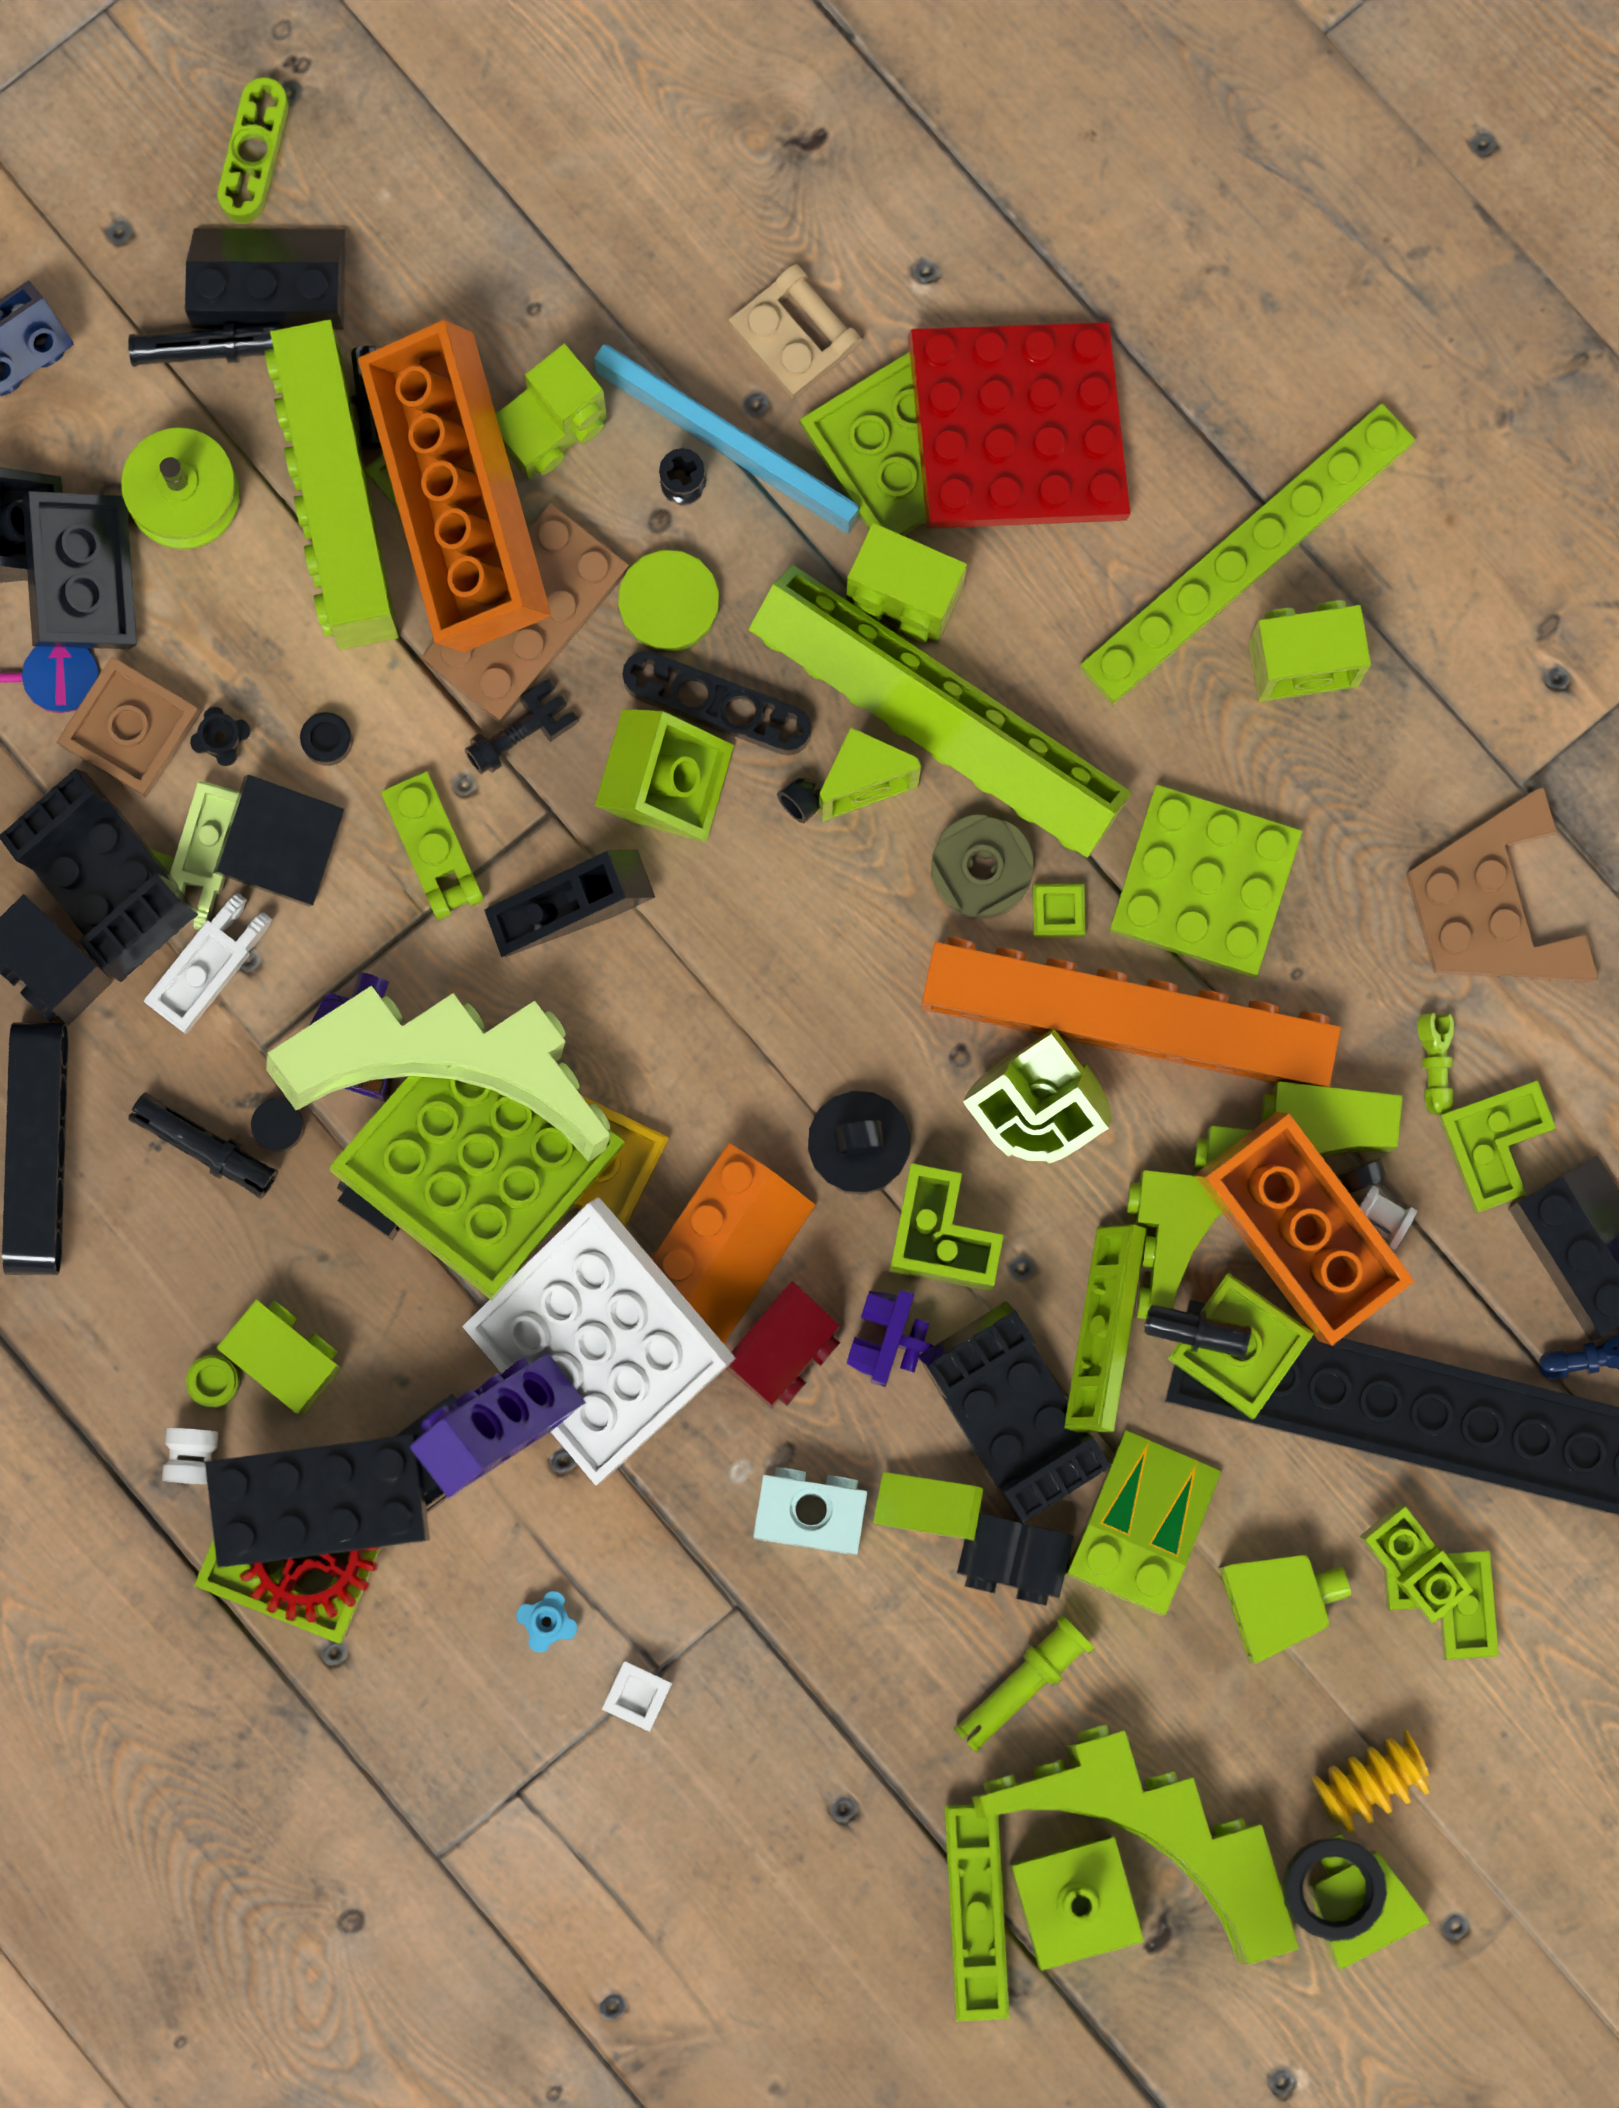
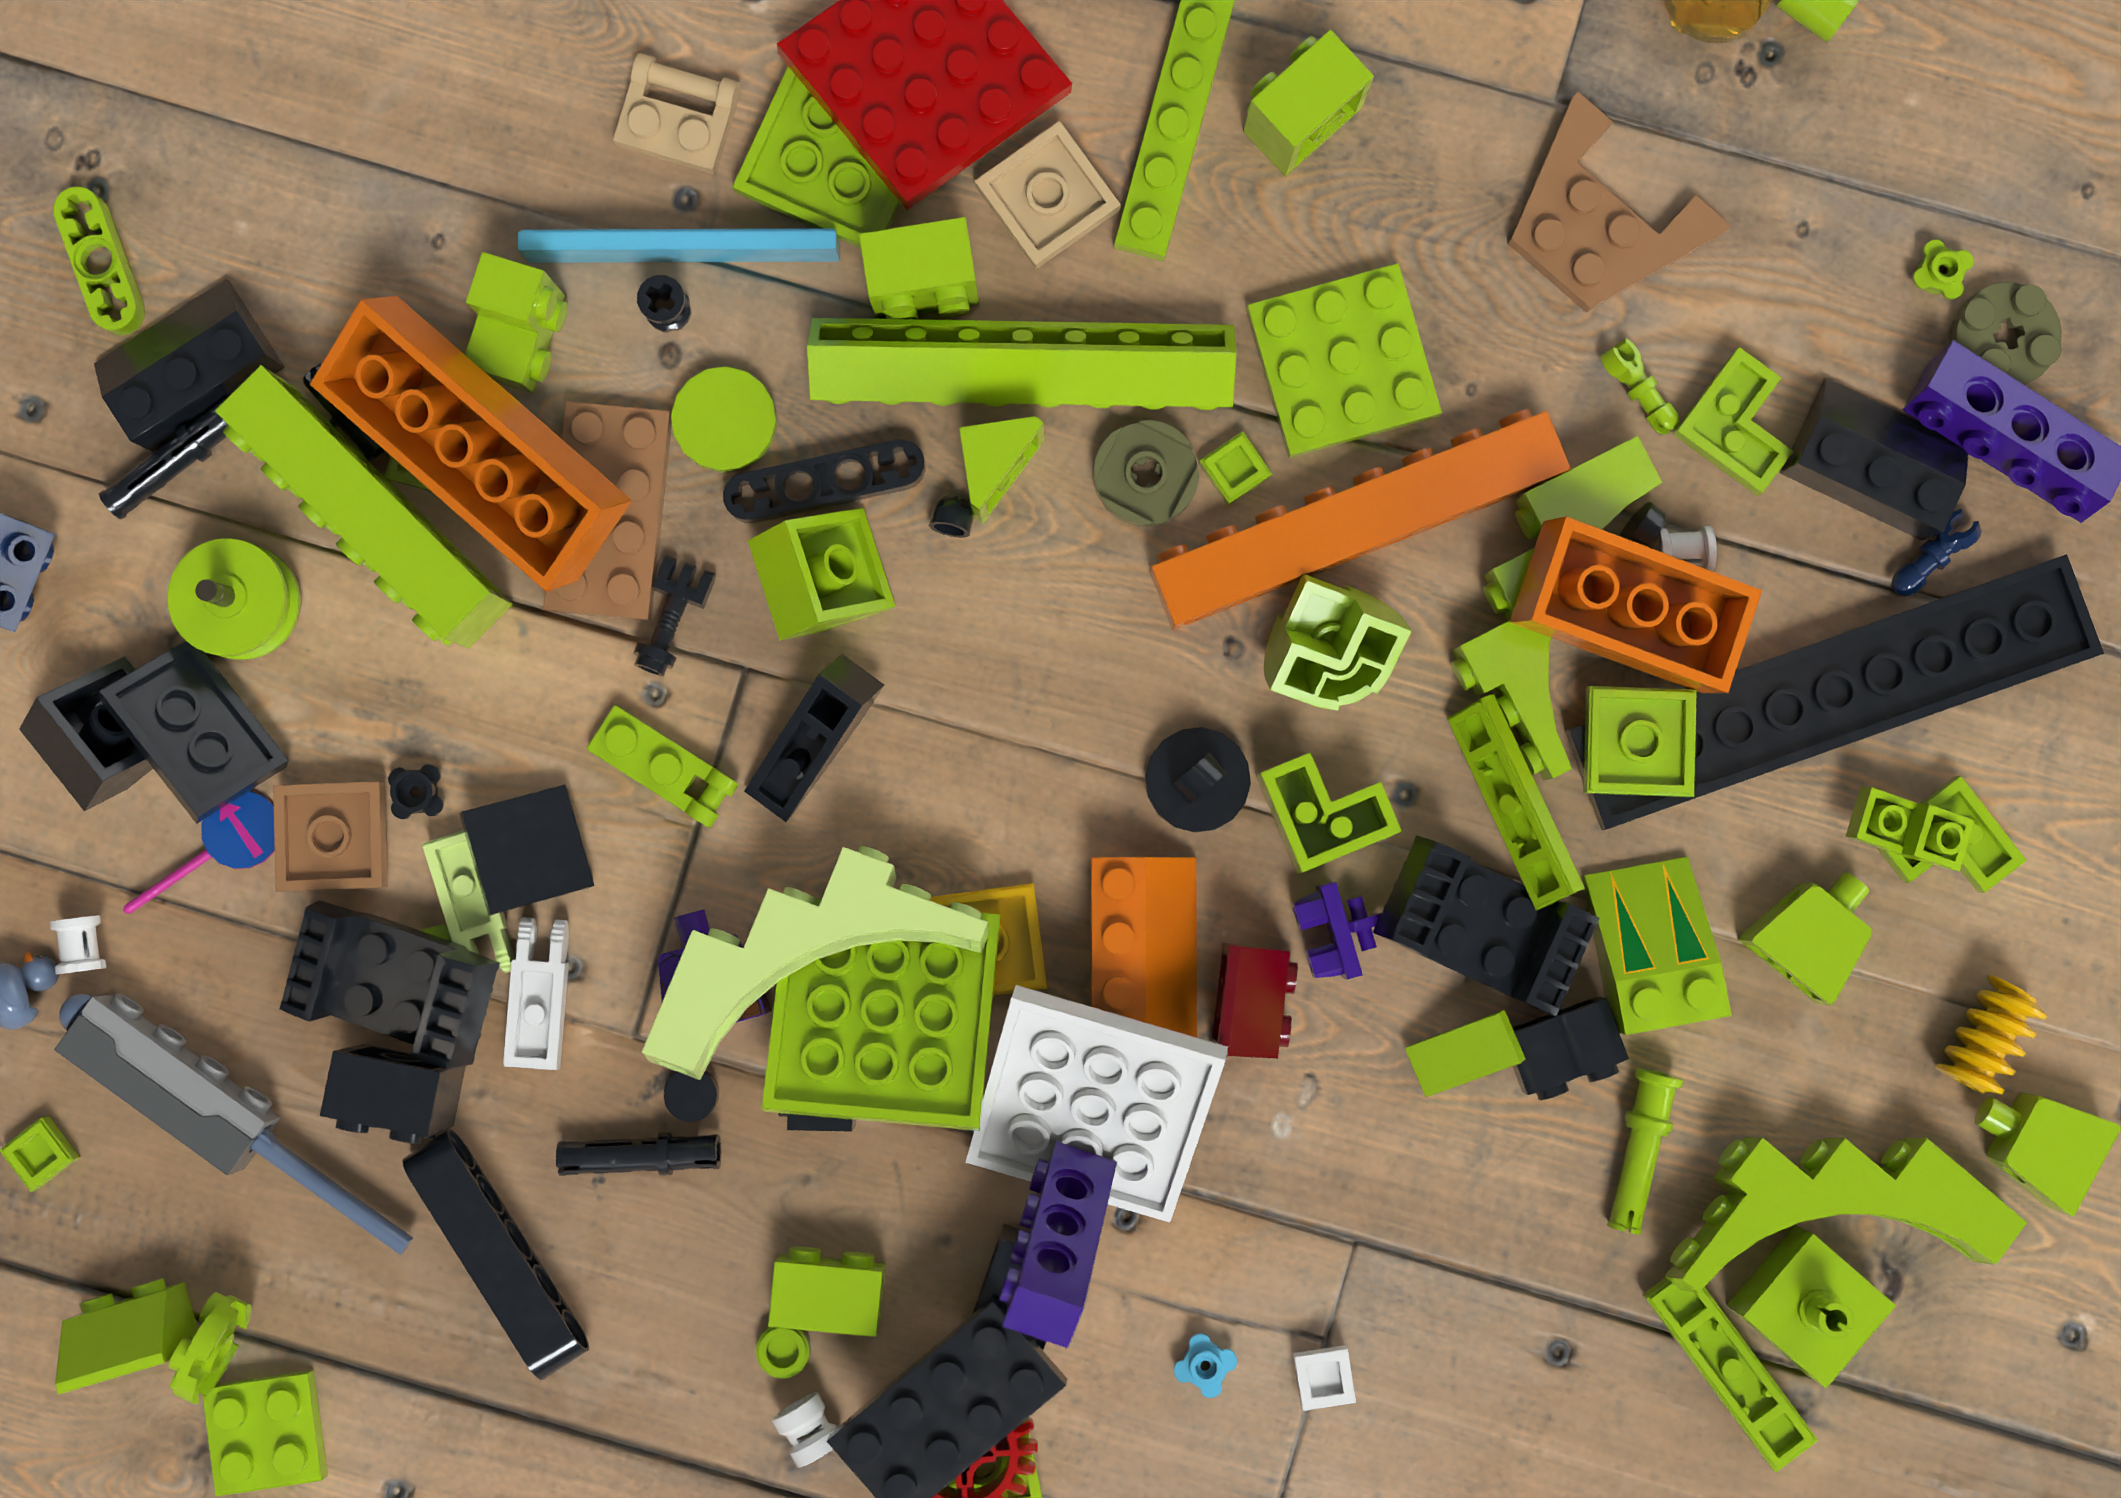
camera: 30 degrees left, 5 degrees up
(326, 738) = (509, 733): black tile -> none
(835, 1533) = (1400, 1125): light aqua brick -> none
(1051, 590) = (1047, 195): none -> tan plate
(1197, 1331) = (1601, 754): black axle -> none
(1374, 1881) = (2072, 1155): black tyre -> none

